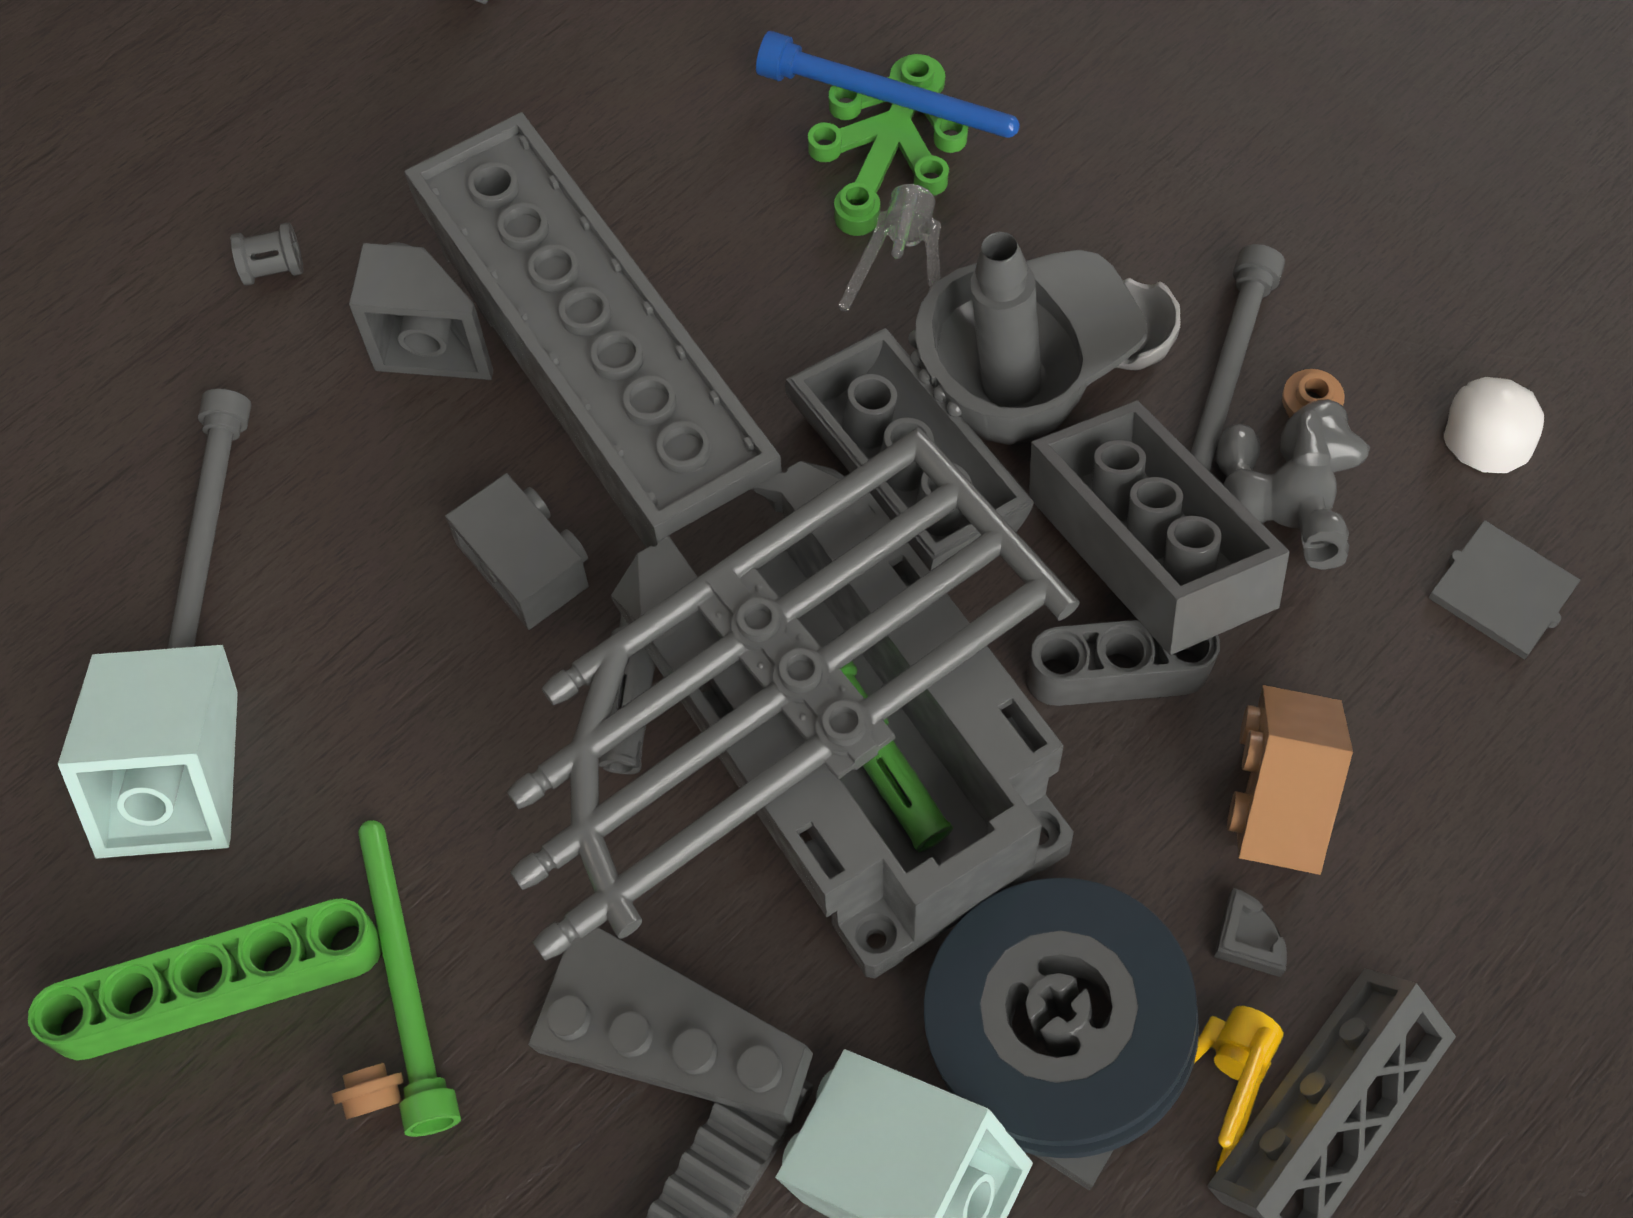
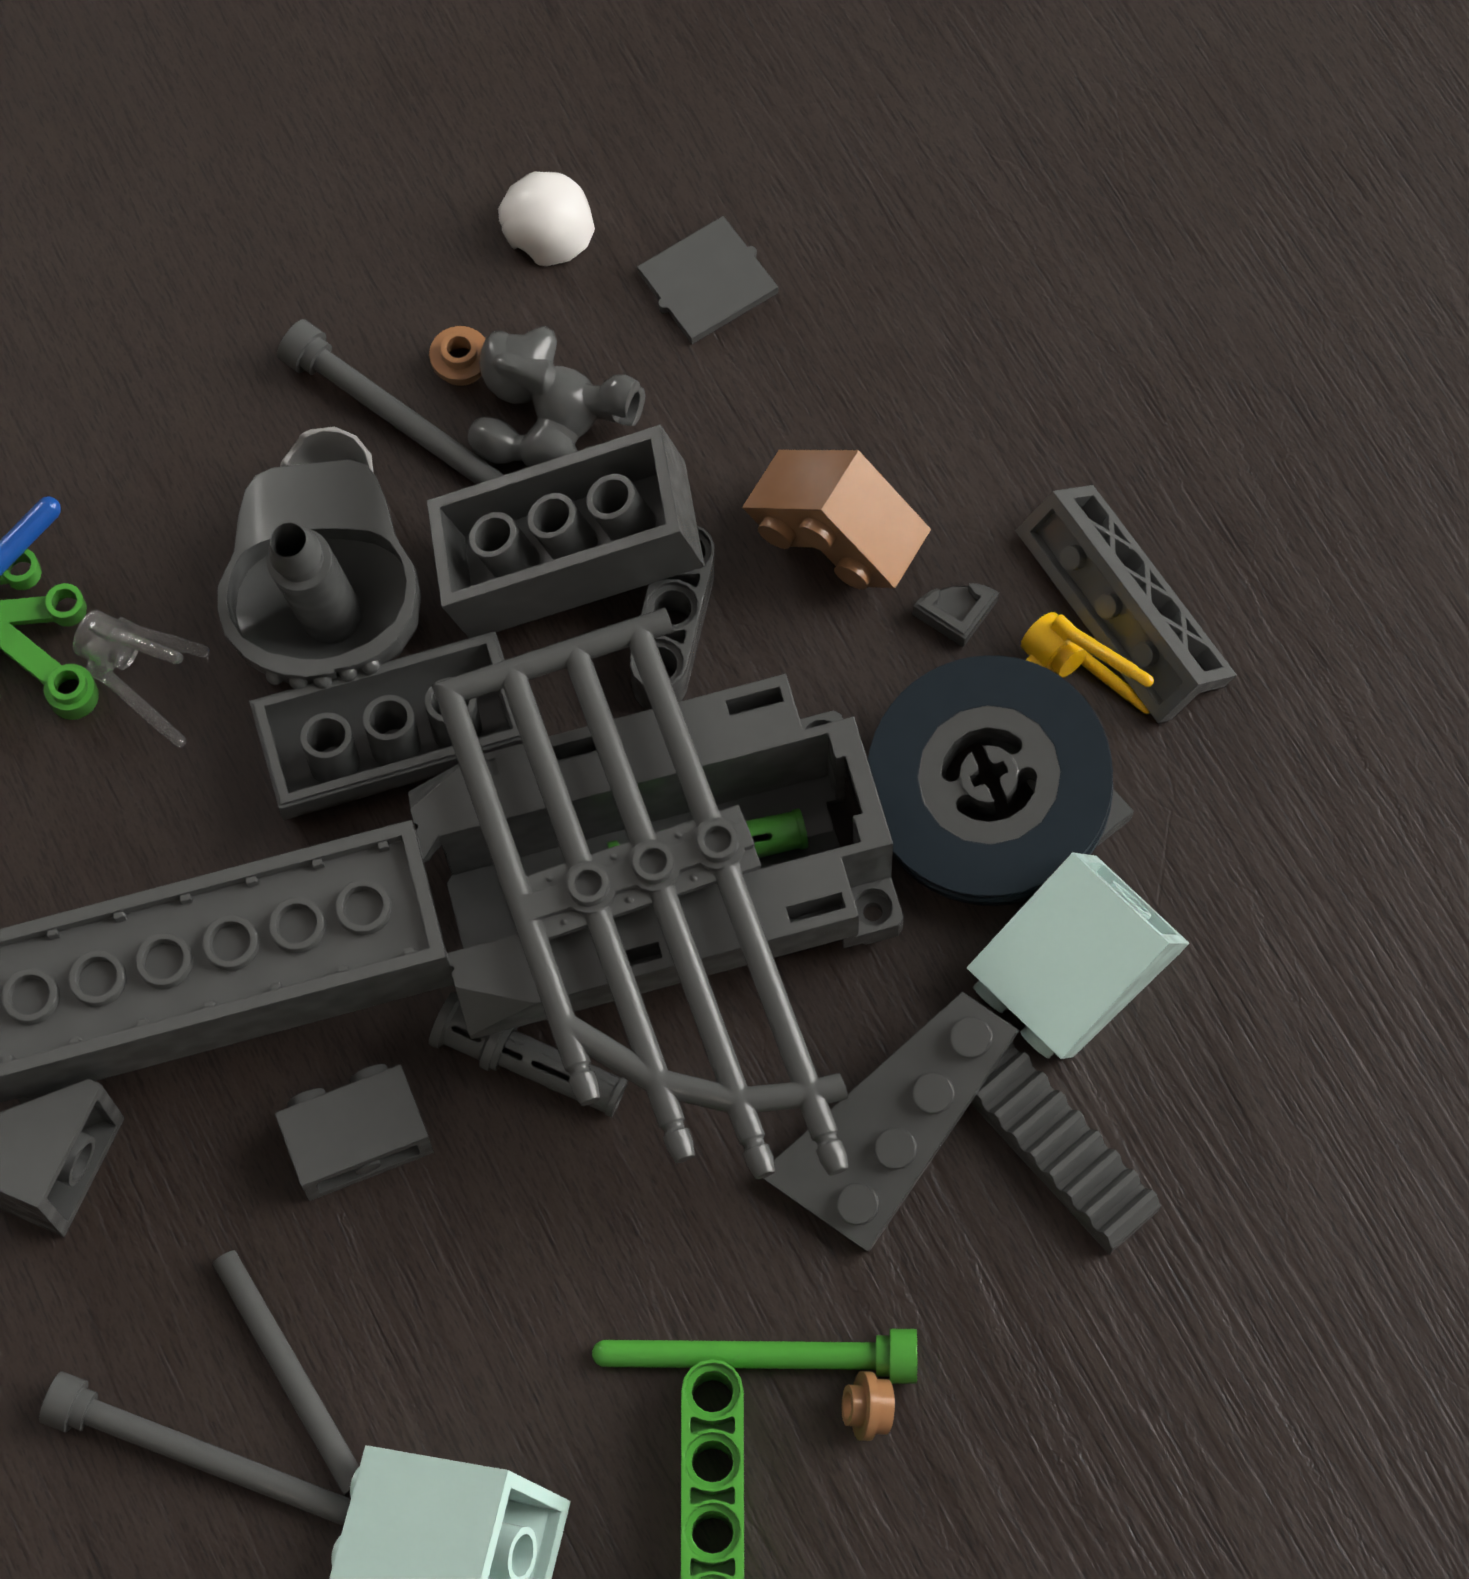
camera: 75 degrees left, 5 degrees up
(299, 569) = (287, 1369): none -> dark grey bar

